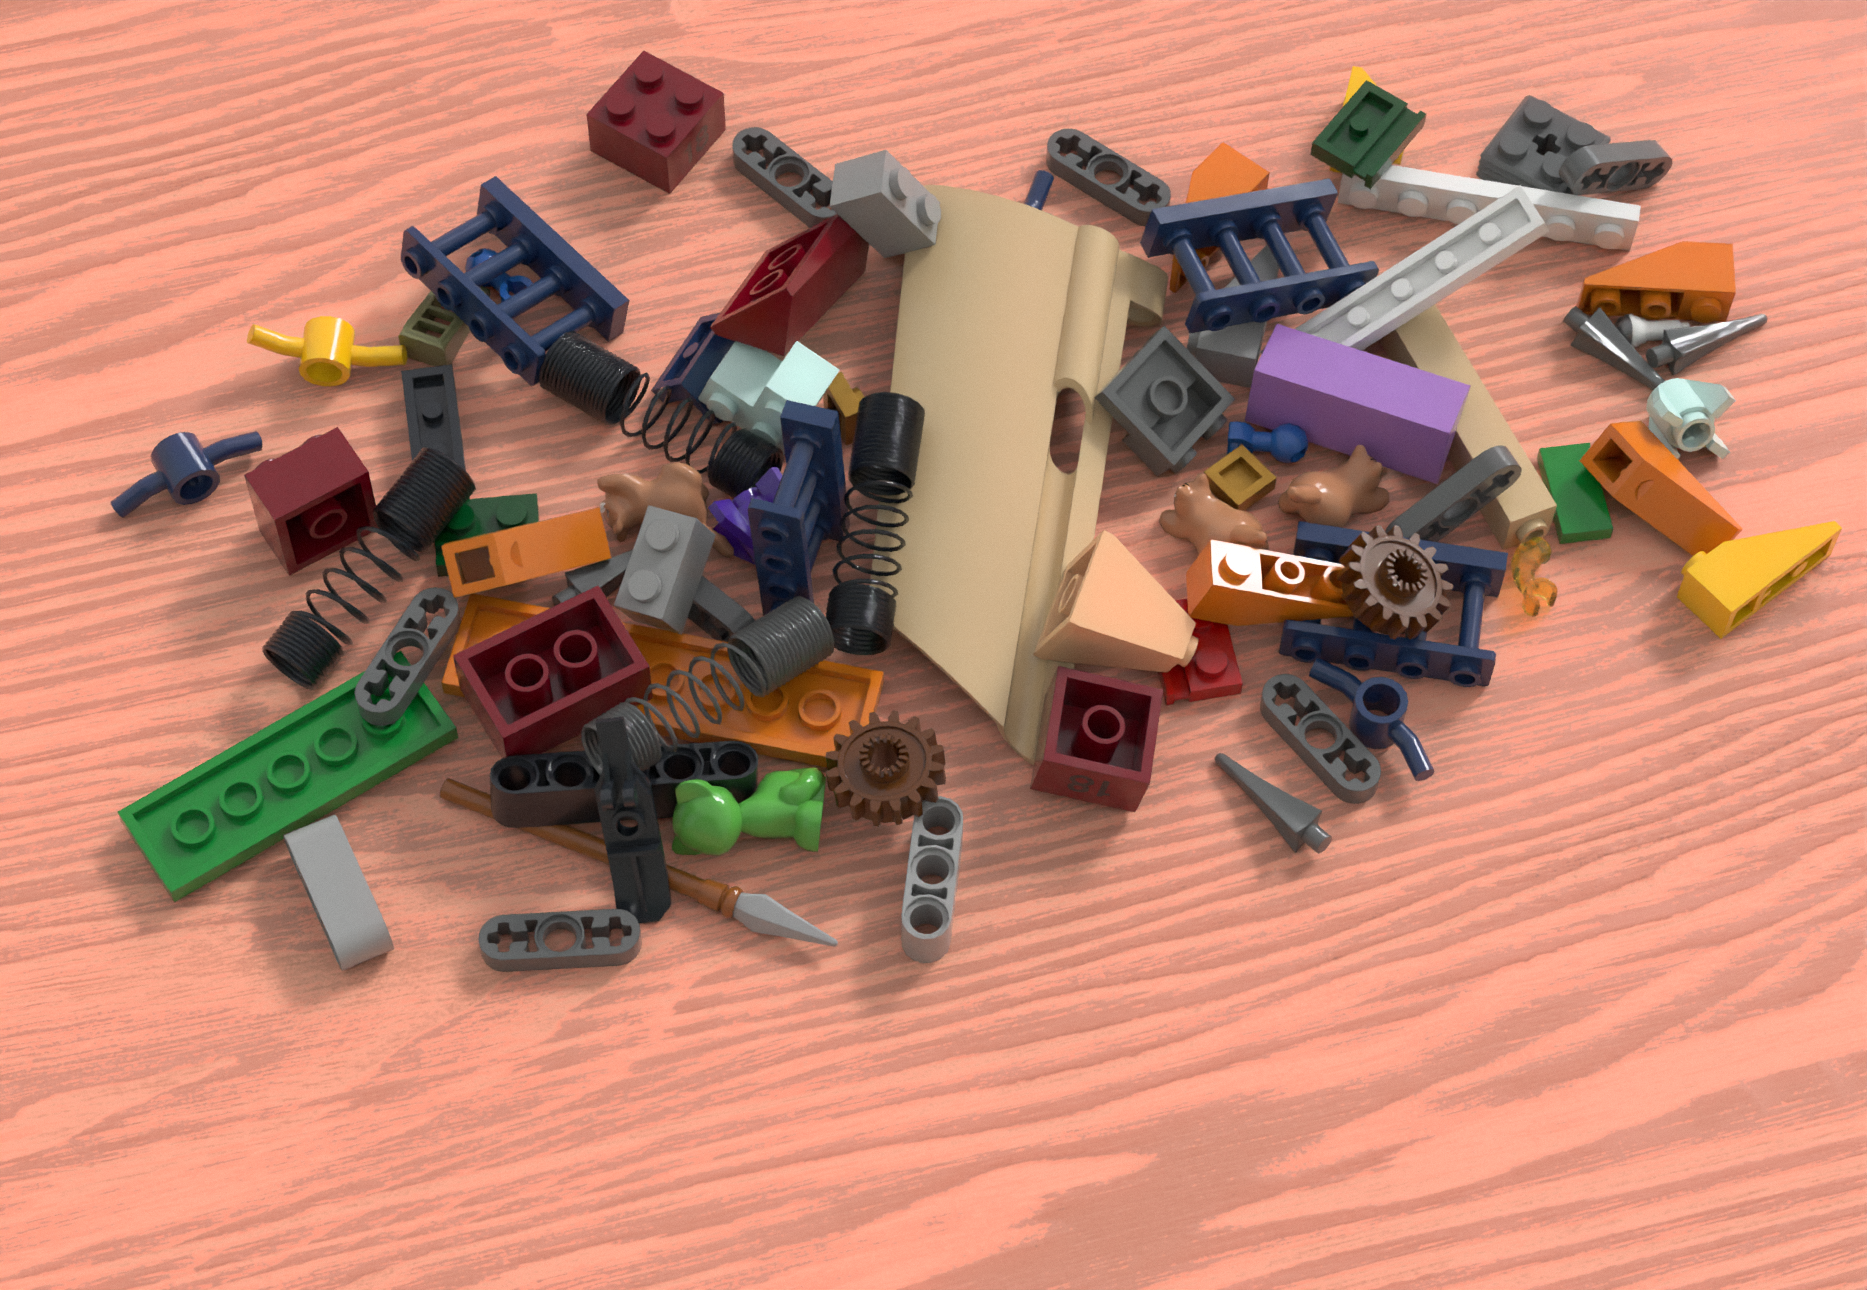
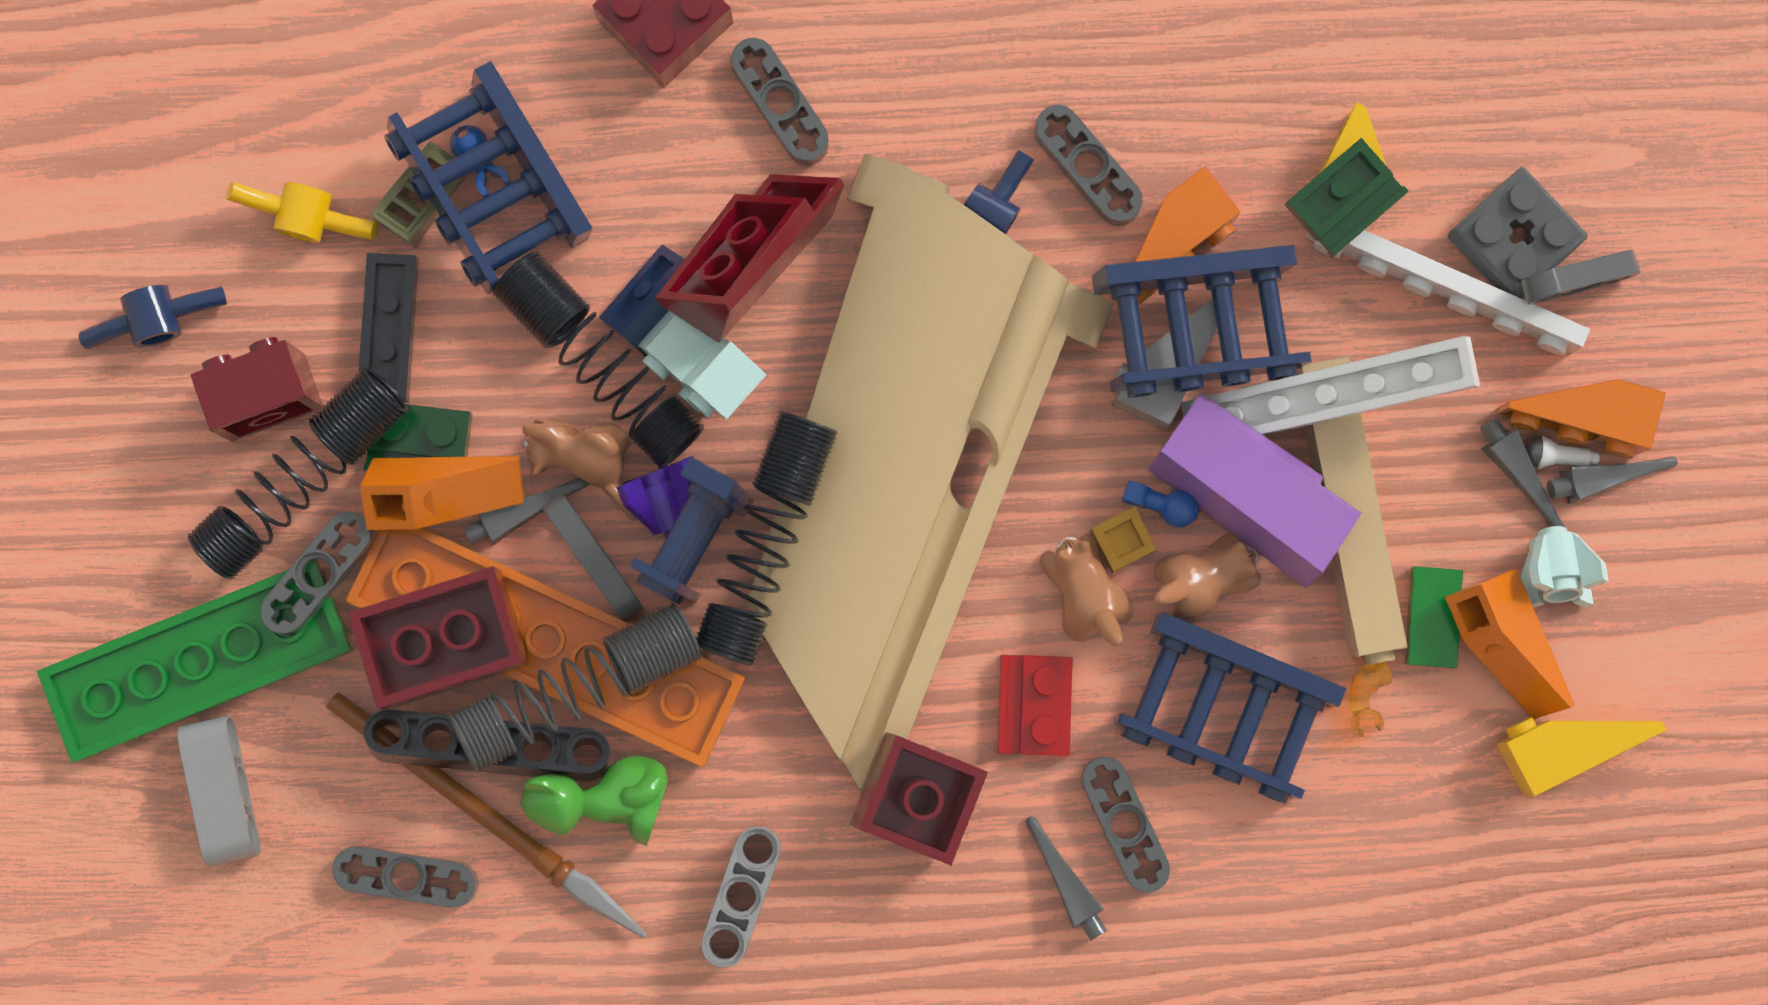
camera: 10 degrees right, 25 degrees up
(637, 851) = (478, 809): black piece -> none
(664, 569) = (561, 549): light grey brick -> none
(845, 401) = (776, 382): pearl gold plate -> none
(861, 765) = (693, 788): reddish brown gear -> none
(885, 204) = (851, 196): light grey brick -> none
(1115, 614) = (960, 682): light nougat slope -> none
(1165, 403) = (1072, 452): dark grey plate -> none
(1261, 586) = (1118, 678): orange slope -> none
(1374, 730) = (1195, 837): dark blue piece -> none
(1393, 583) = (1251, 714): reddish brown gear -> none
(1460, 495) = (1312, 623): dark grey beam -> none

